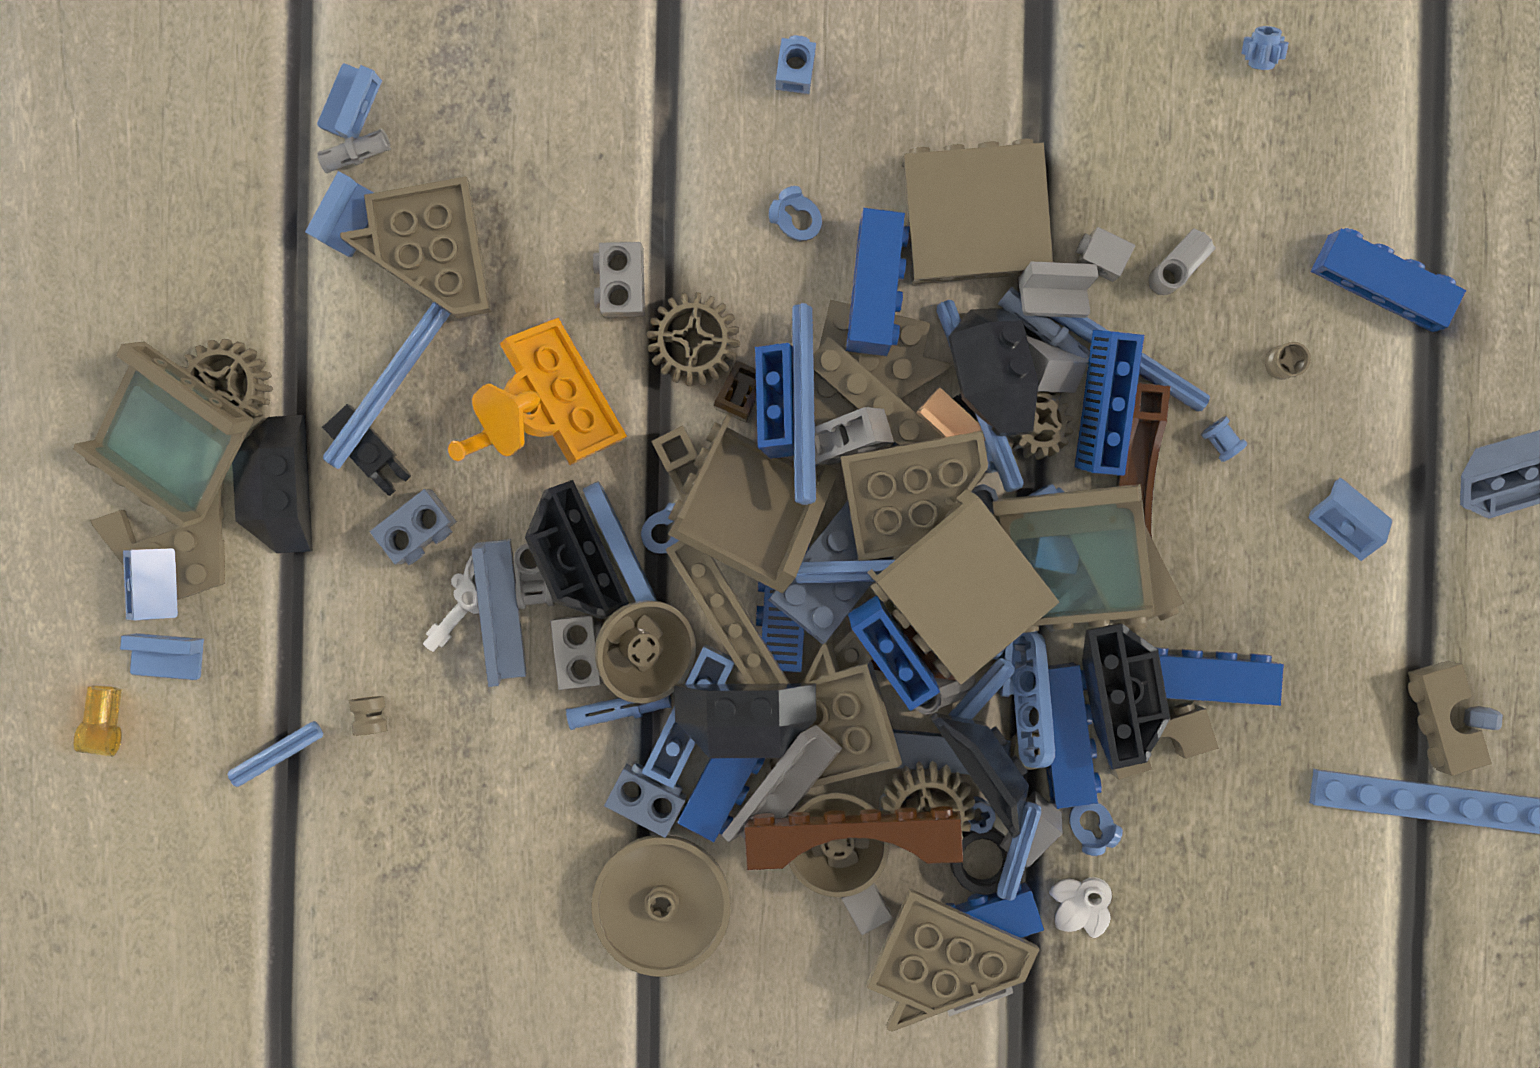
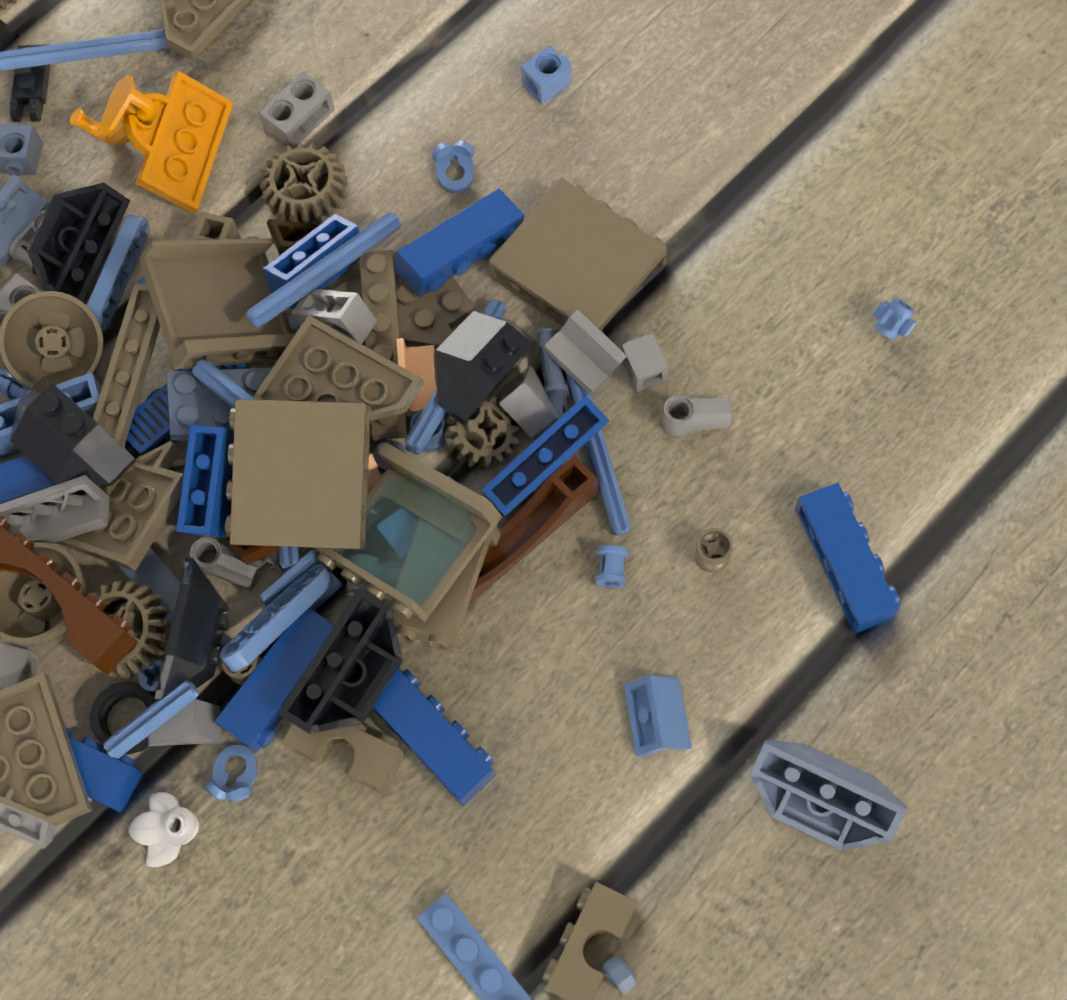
camera: 50 degrees right, 20 degrees down
(984, 689) = (252, 580): medium blue axle -> none

